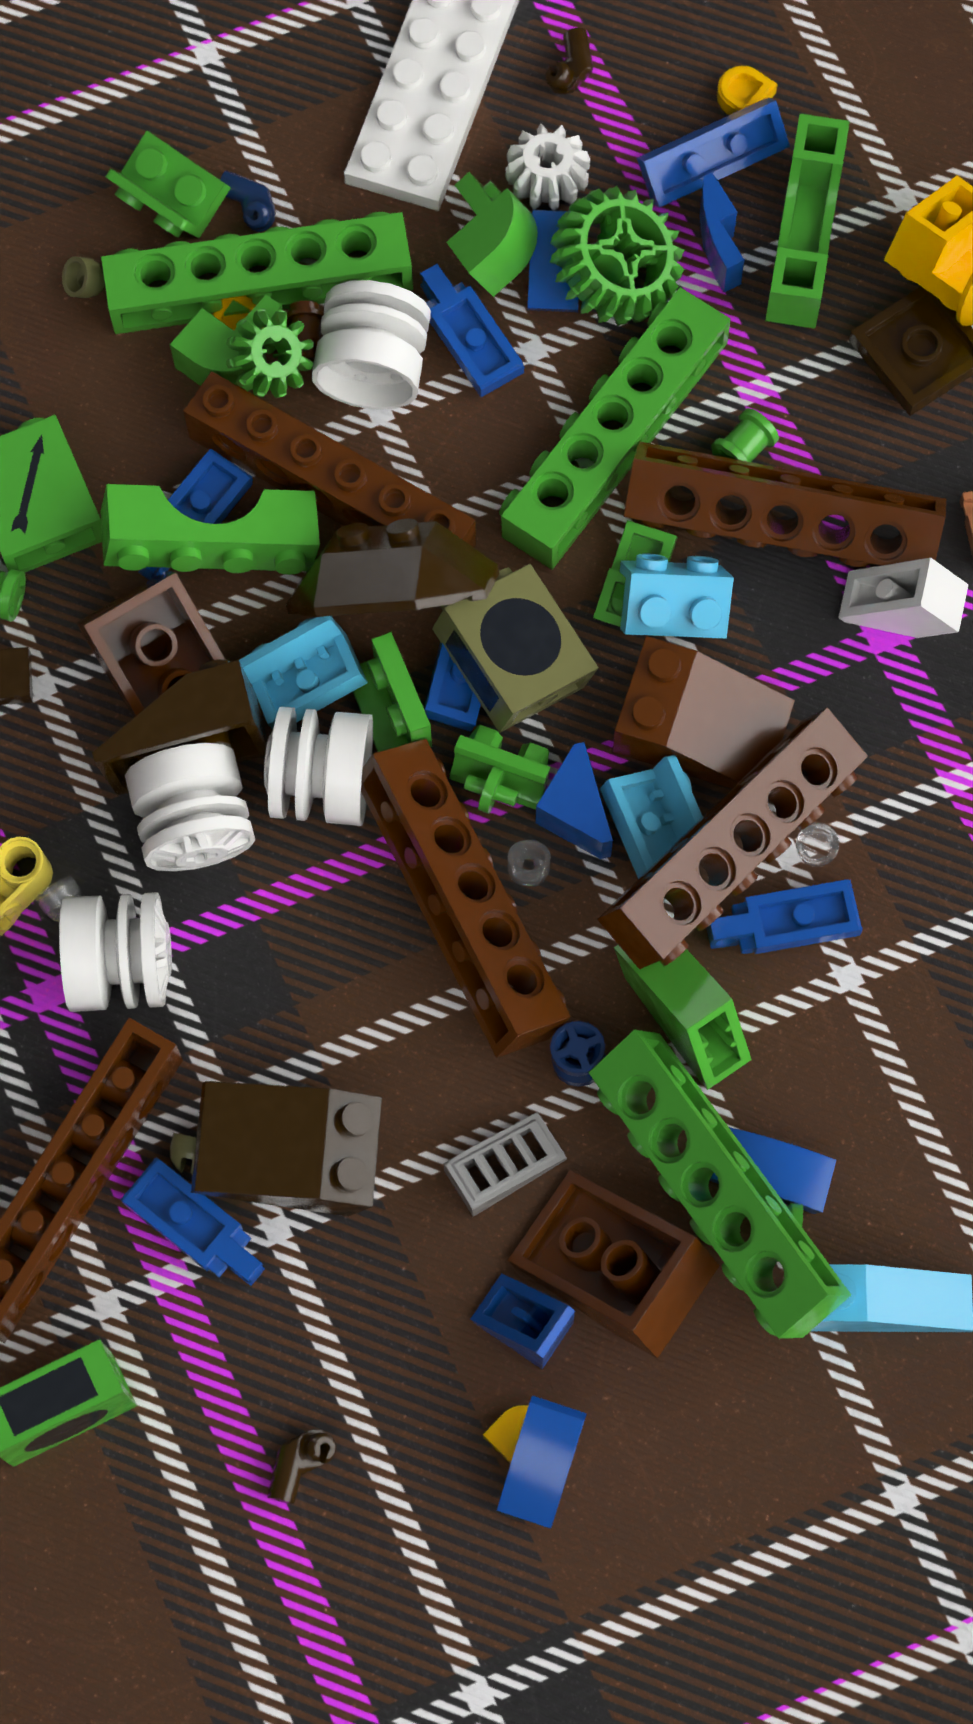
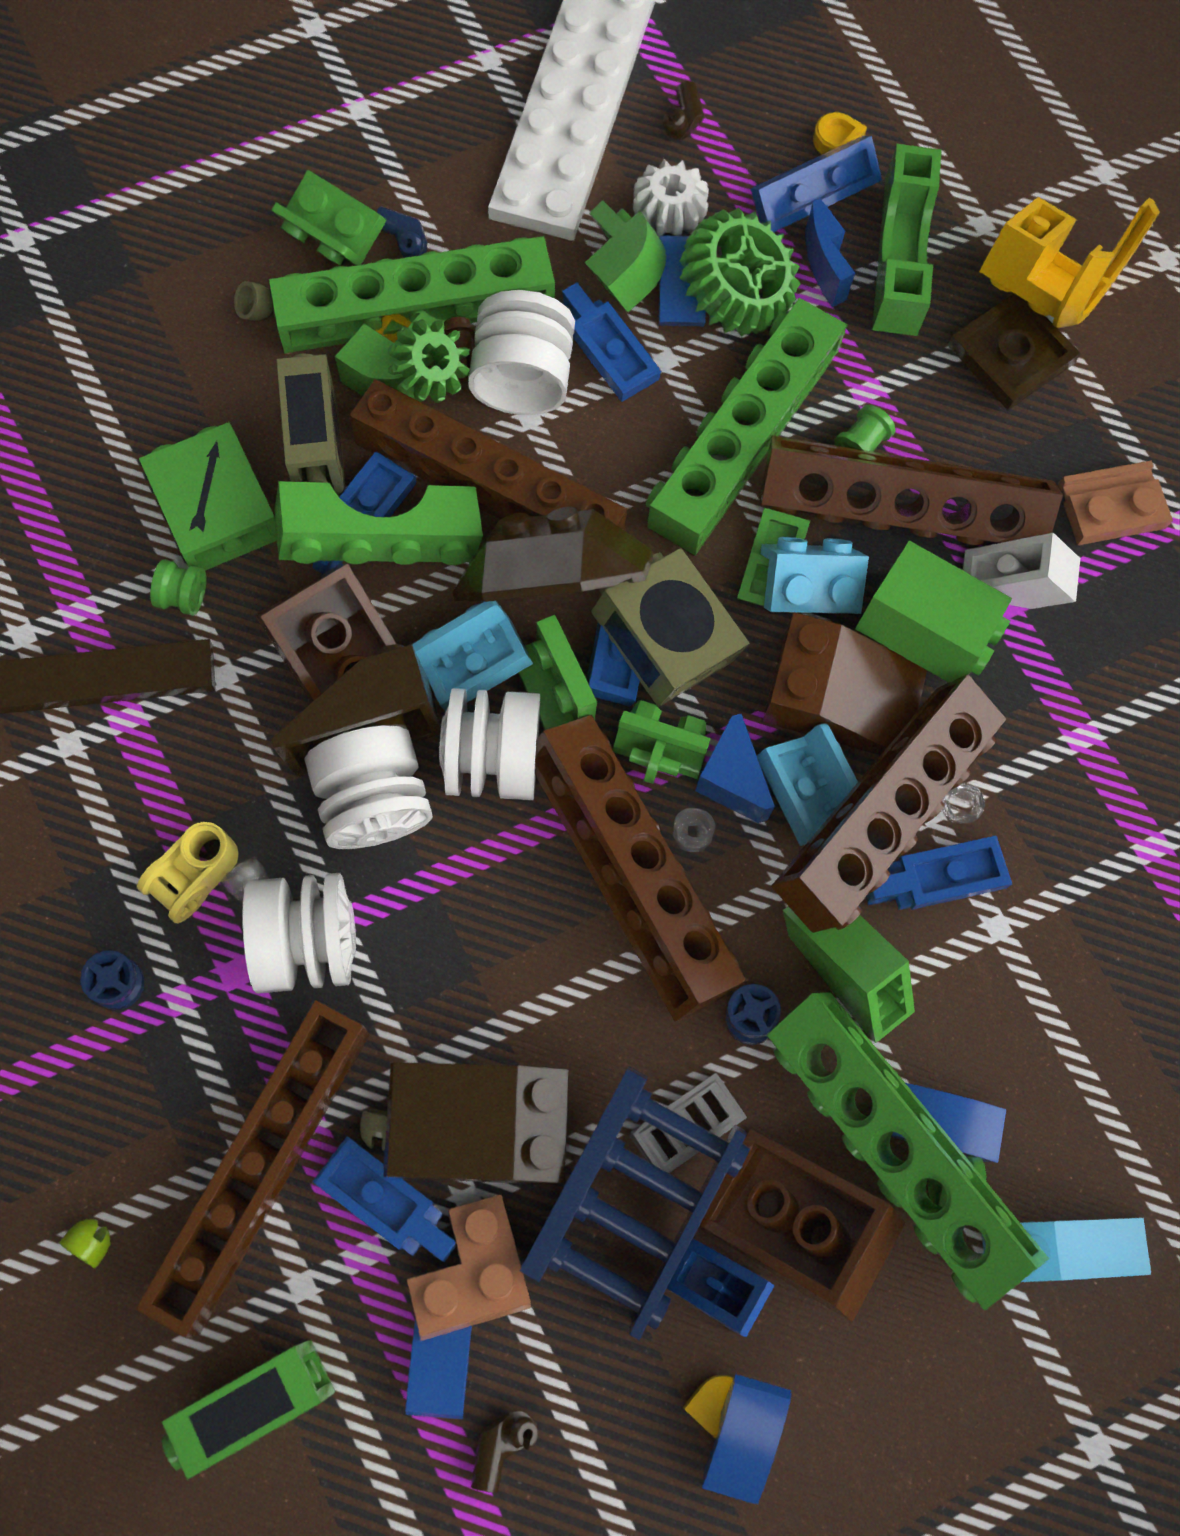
camera: 10 degrees left, 0 degrees up
(142, 418) = (310, 421): none -> olive brick
(242, 1369) = (438, 1374): none -> blue slope
(287, 1306) = (484, 1283): none -> nougat plate
(387, 1226) = (581, 1201): none -> dark blue fence
(802, 641) = (936, 615): none -> bright green brick

